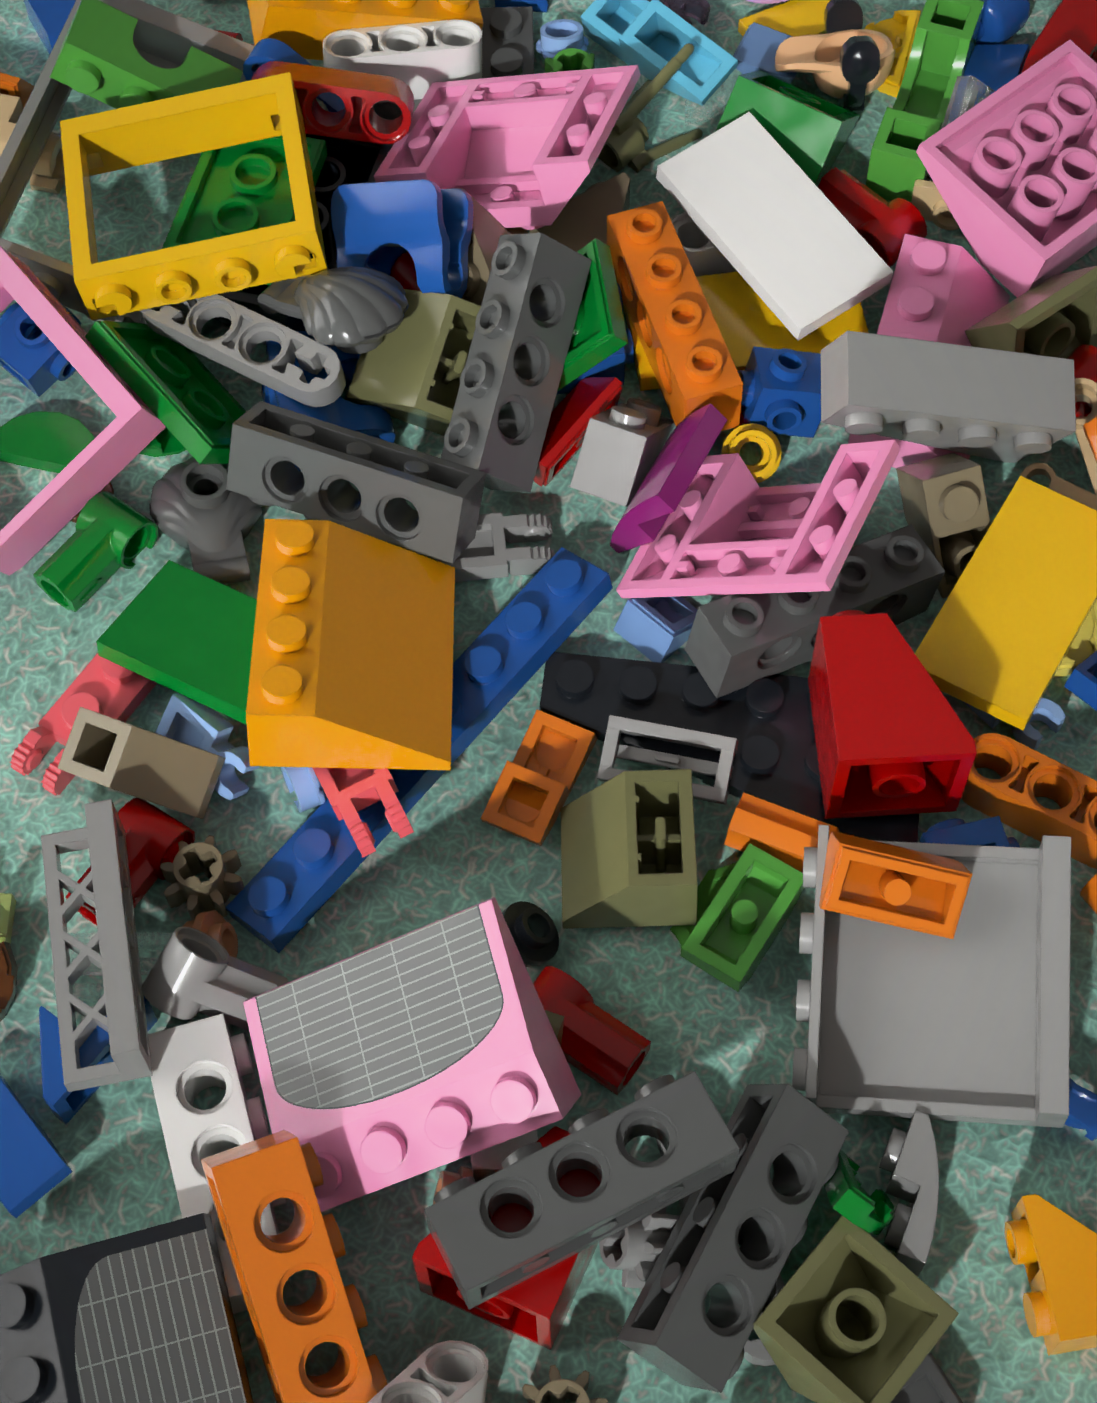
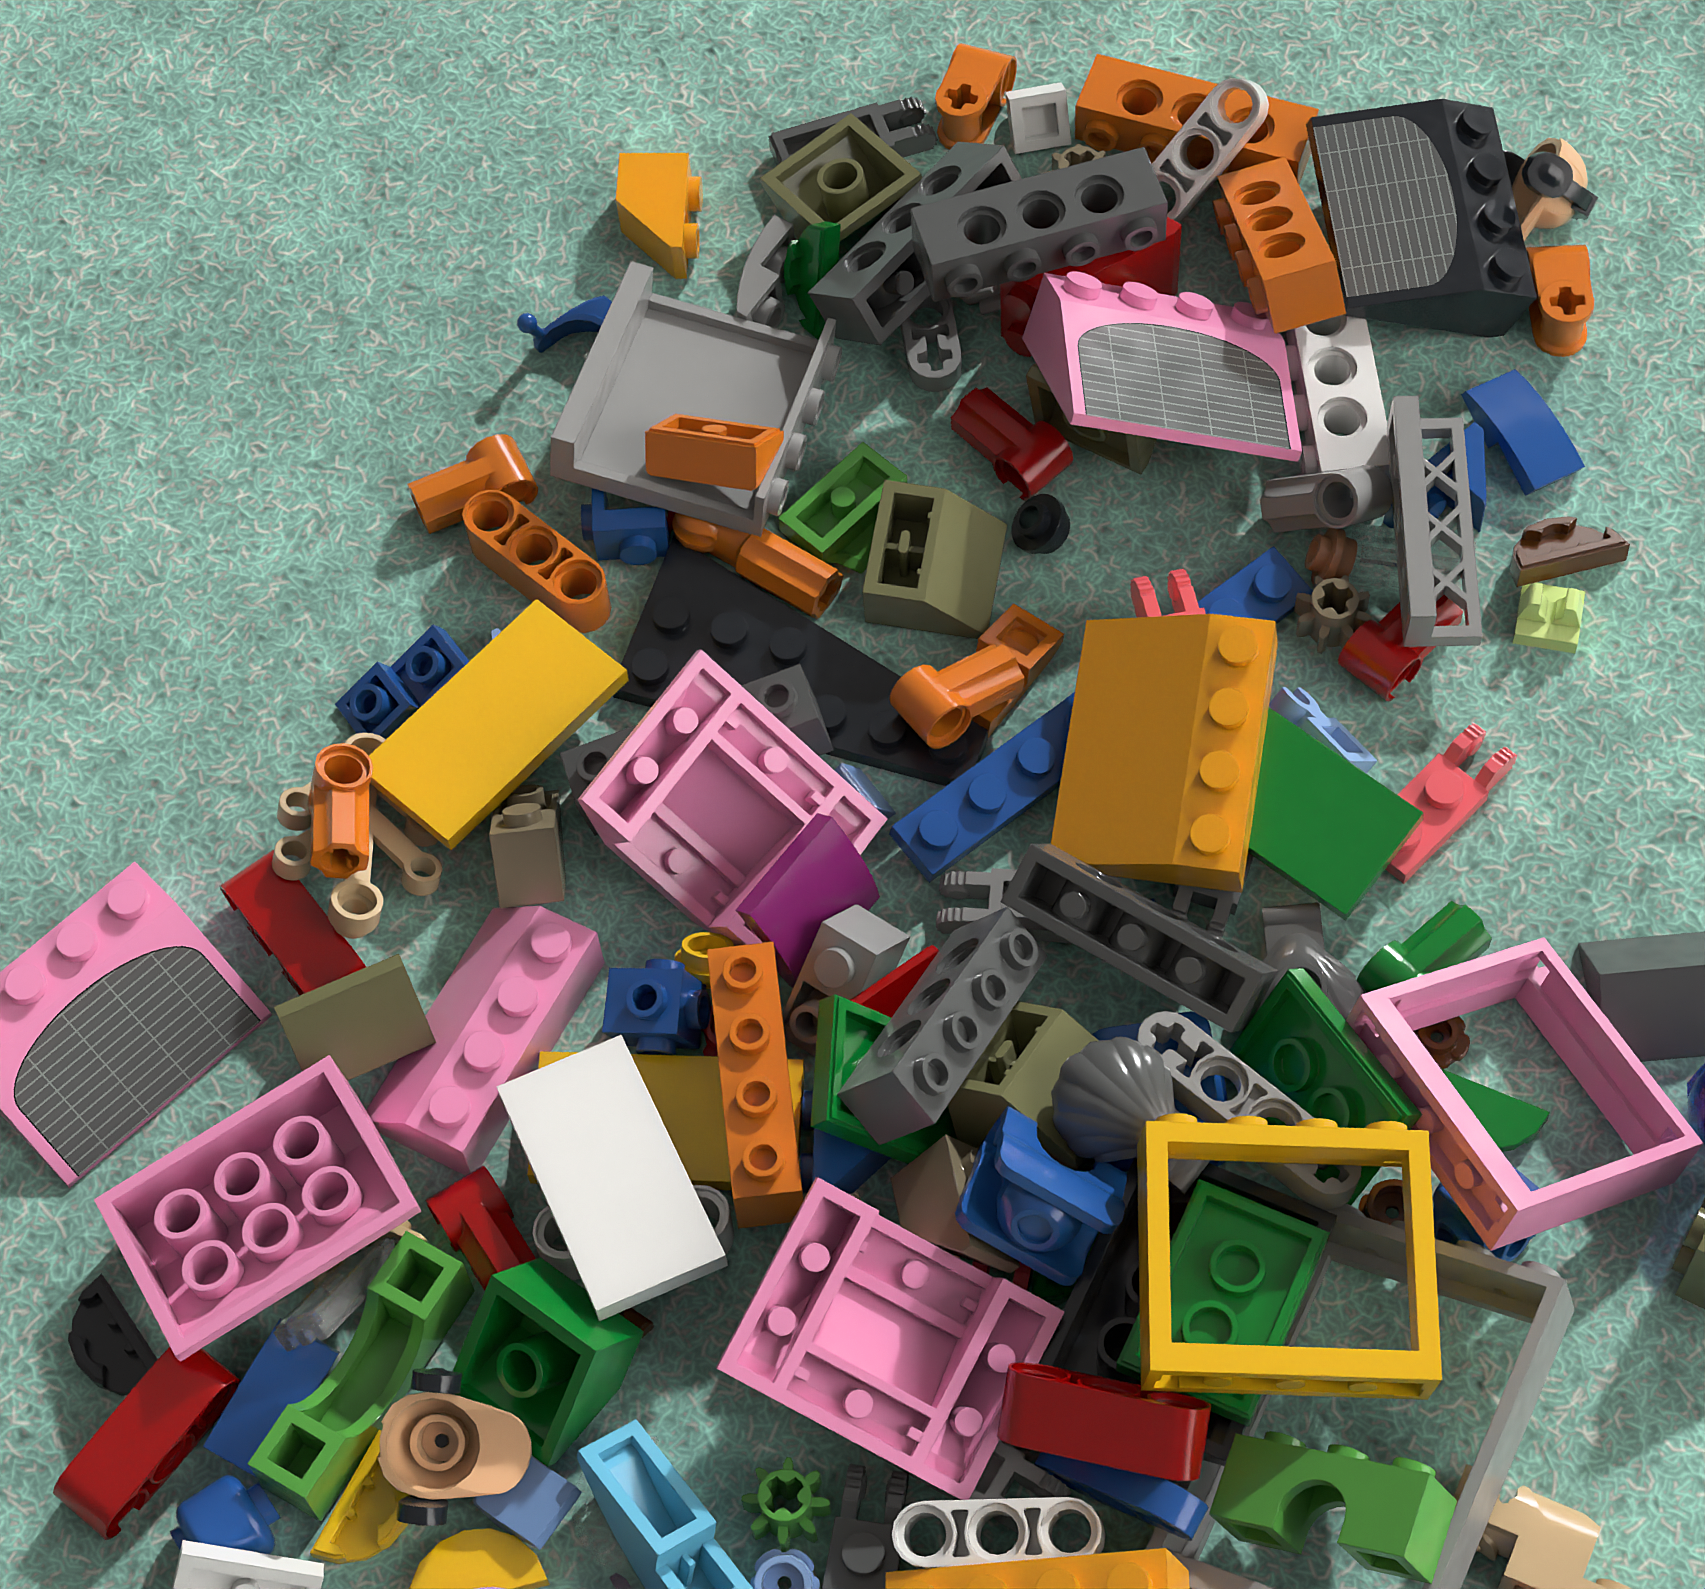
camera: 165 degrees left, 0 degrees up
(141, 763) = (1386, 710): dark tan slope -> none
(584, 691) = (946, 700): none -> orange piece
(629, 134) = (736, 1409): olive plant -> none
(722, 770) = (870, 645): light grey tile -> none
(882, 723) = (681, 578): red slope -> none
(948, 395) = (497, 891): light grey wedge -> none

